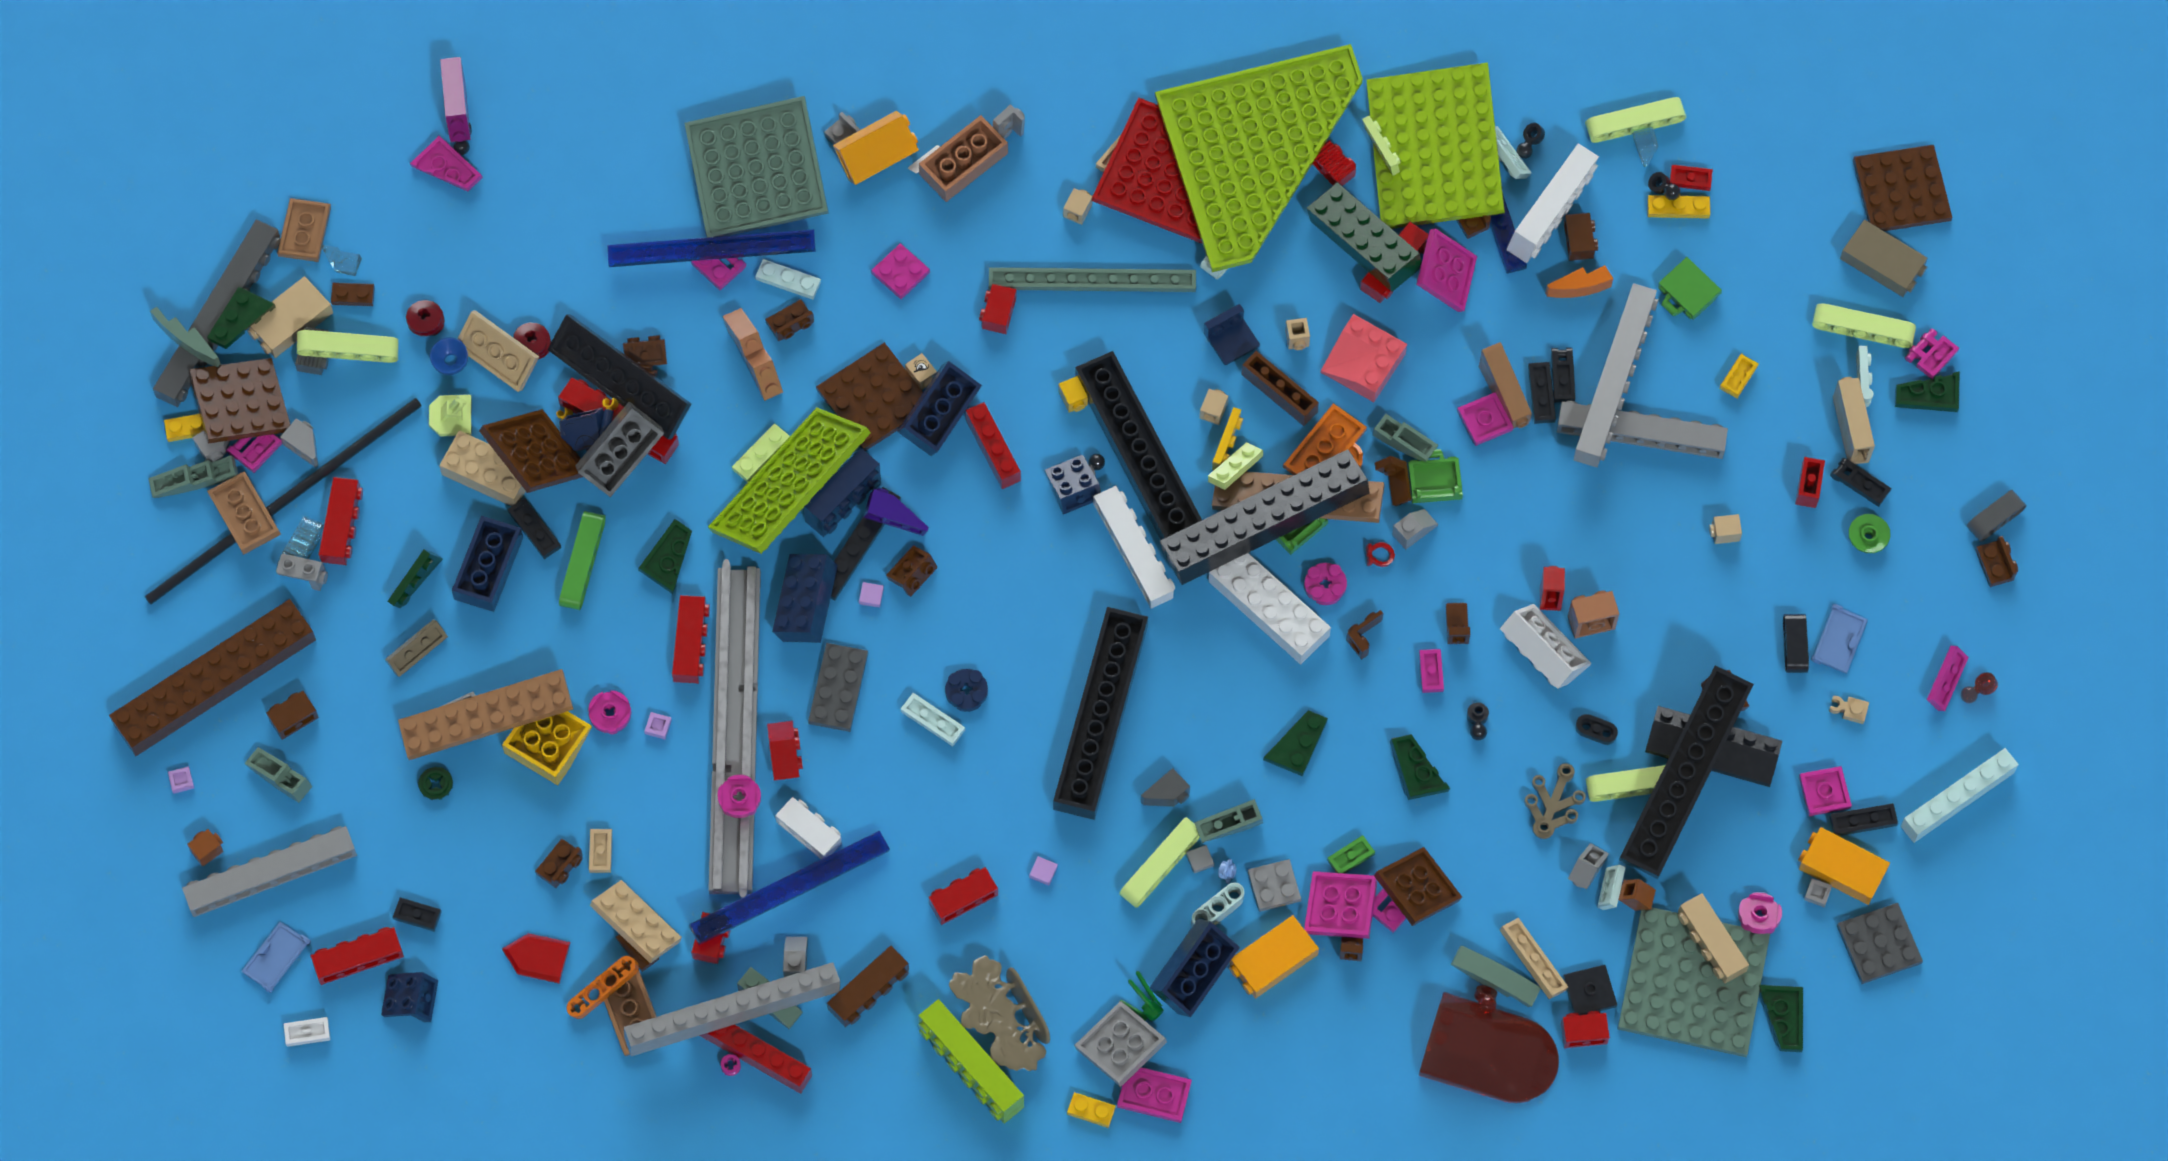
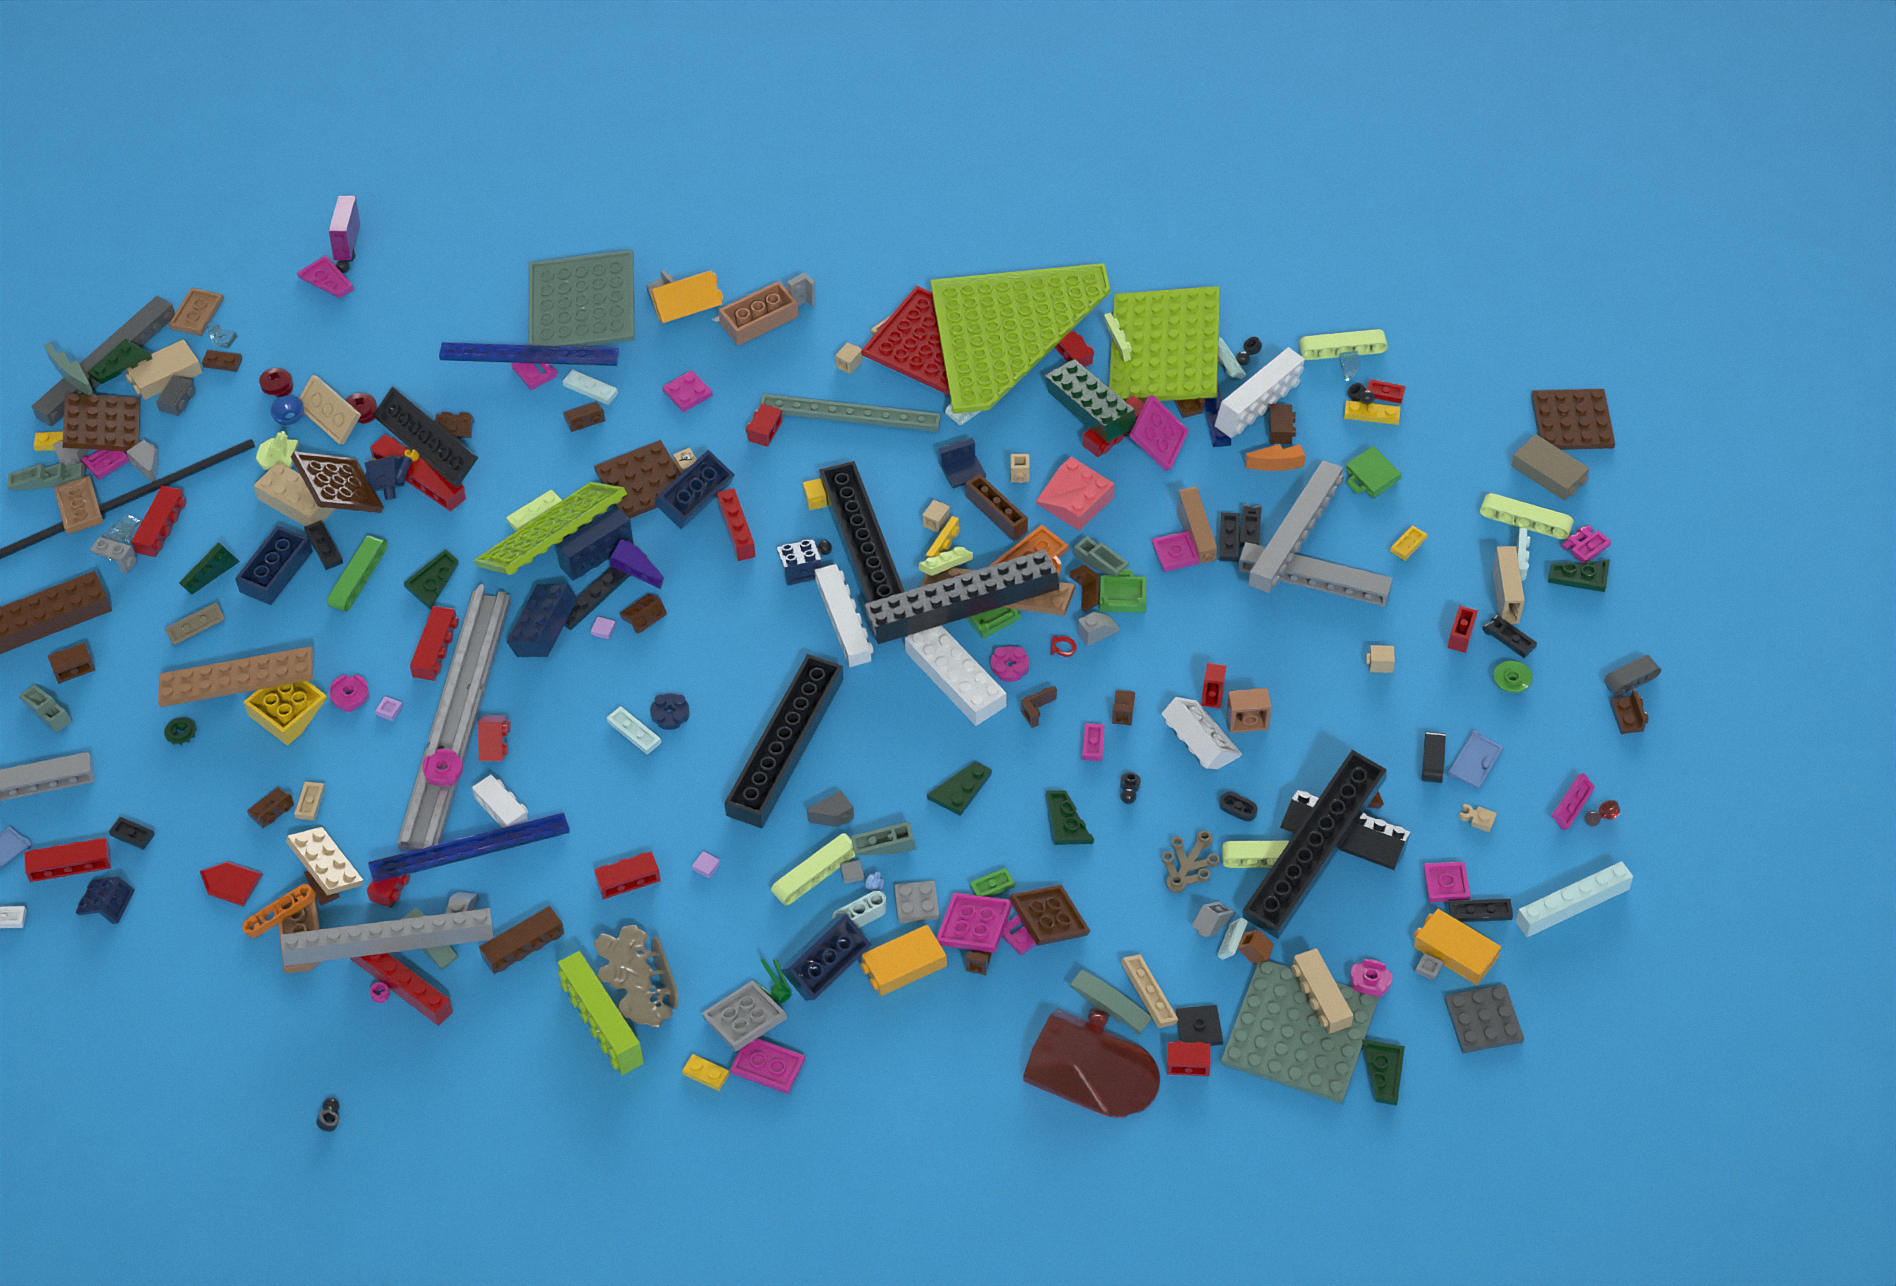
camera: 10 degrees right, 15 degrees down
(347, 346) = (203, 392): yellowish green beam -> none
(619, 449) = (408, 486): dark grey brick -> none
(753, 352) = (546, 435): nougat arch -> none
(838, 687) = (556, 696): dark grey plate -> none

